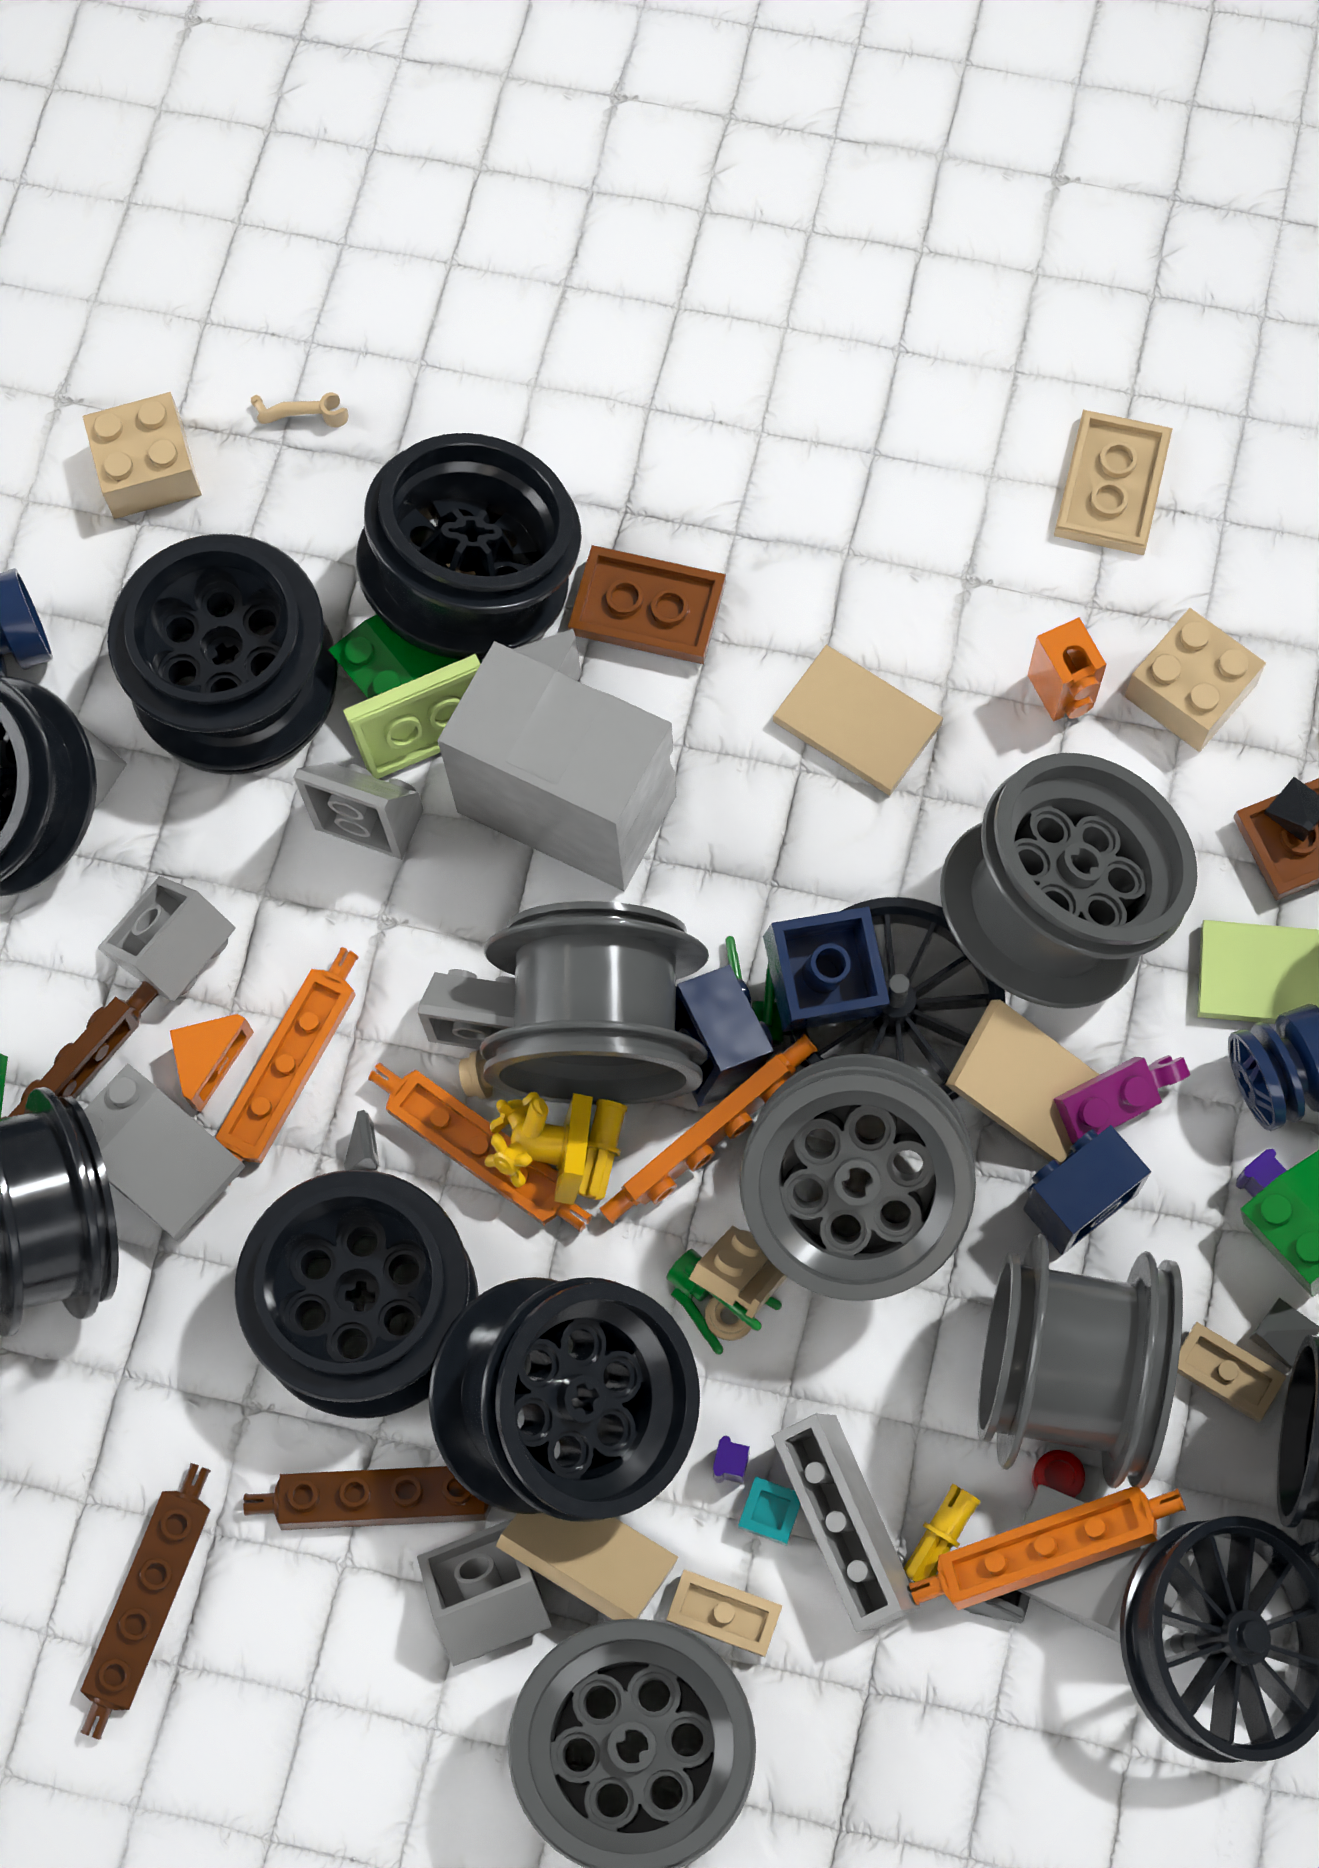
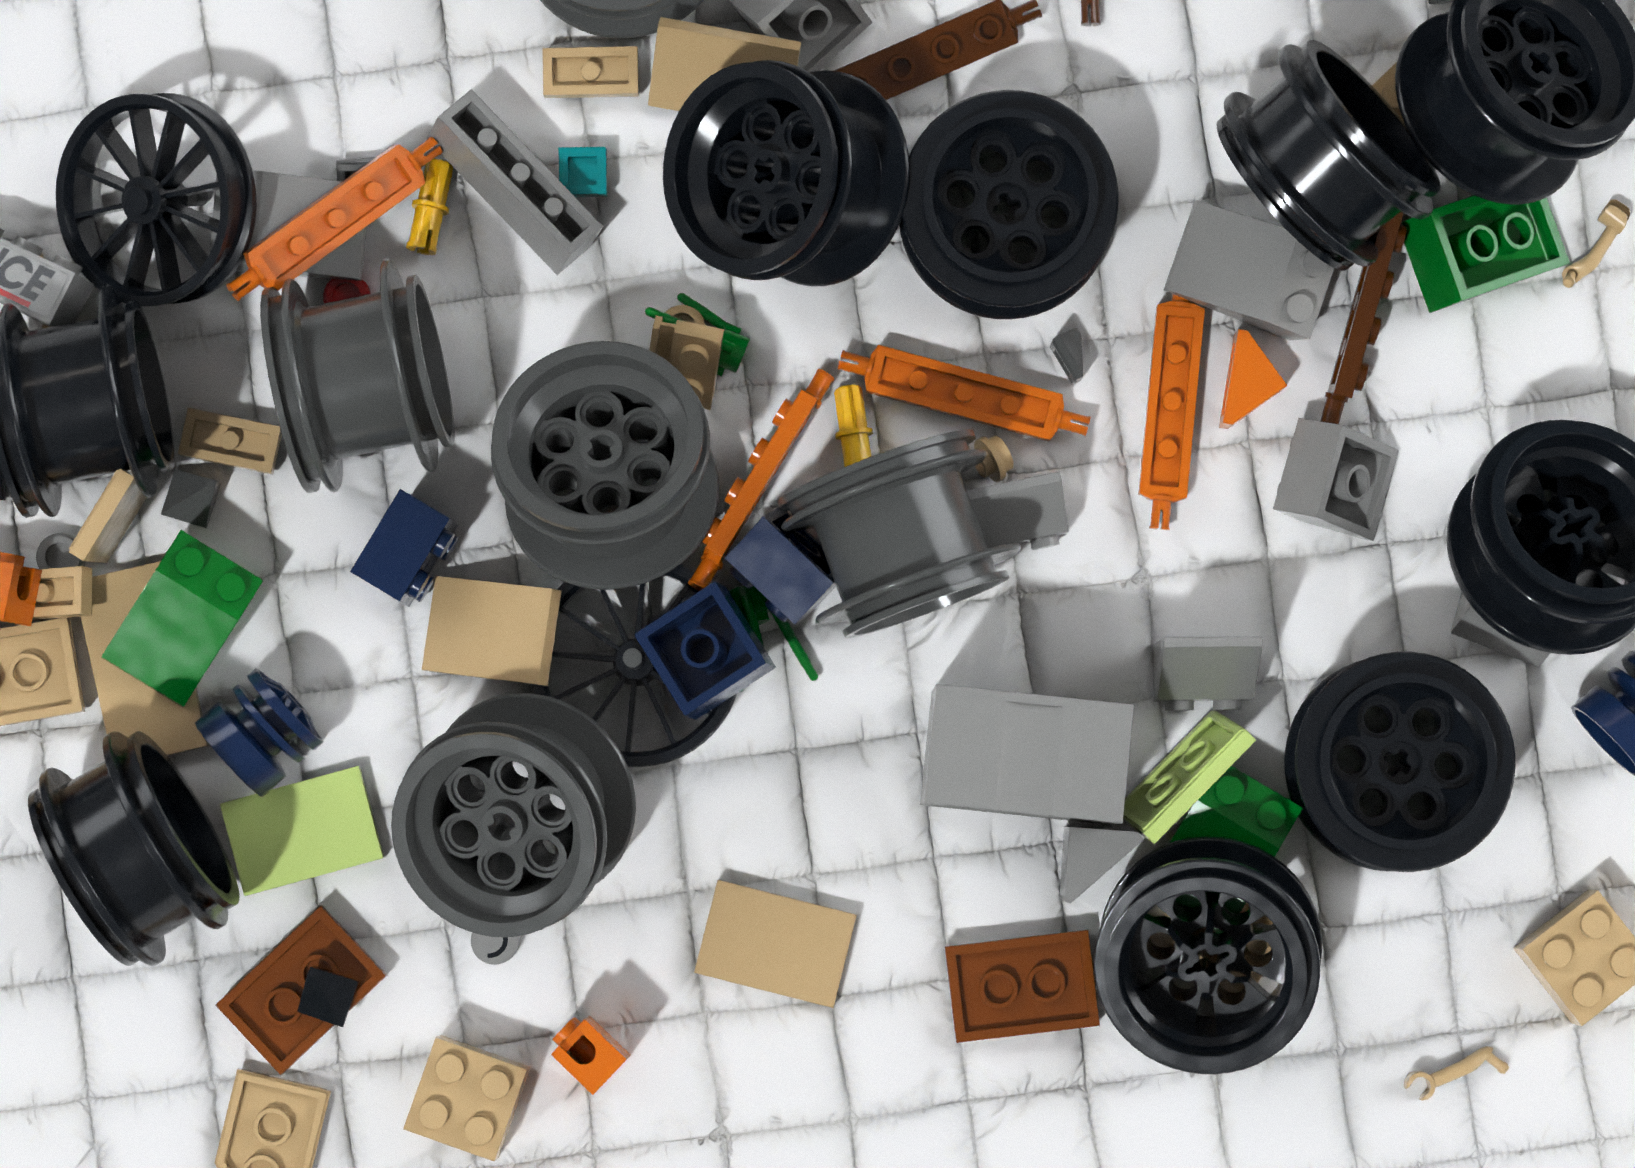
camera: 155 degrees right, 15 degrees up
(542, 1142) = (903, 409): yellow piece -> none
(730, 1461) = (632, 199): dark purple piece -> none
(1118, 1094) = (405, 655): magenta plate -> none
(1260, 1172) = (255, 630): dark purple piece -> none

